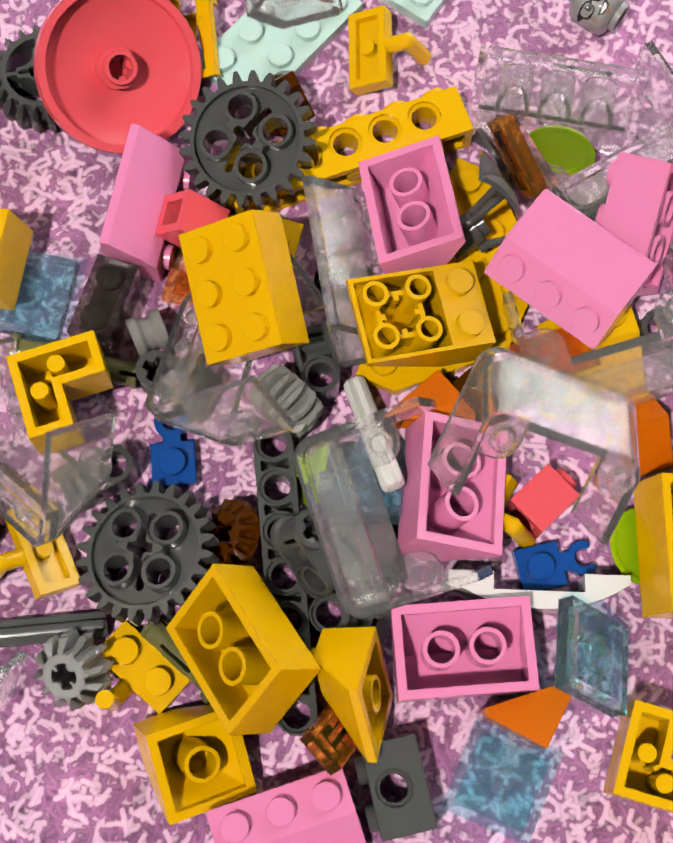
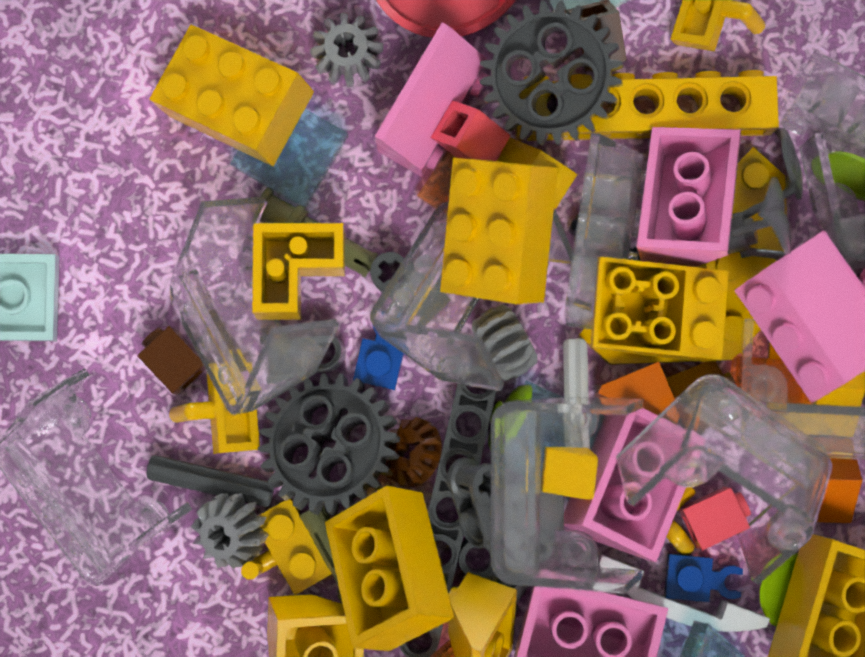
camera: 25 degrees right, 10 degrees up
(57, 202) = (330, 55): none -> light grey gear
(107, 302) = (362, 189): clear smoke brick -> none
(148, 332) = (394, 229): light grey wheel -> none
(318, 358) = (550, 310): dark grey piece -> none
(387, 493) = (569, 472): none -> yellow slope
(517, 155) = (810, 176): clear orange tile -> none

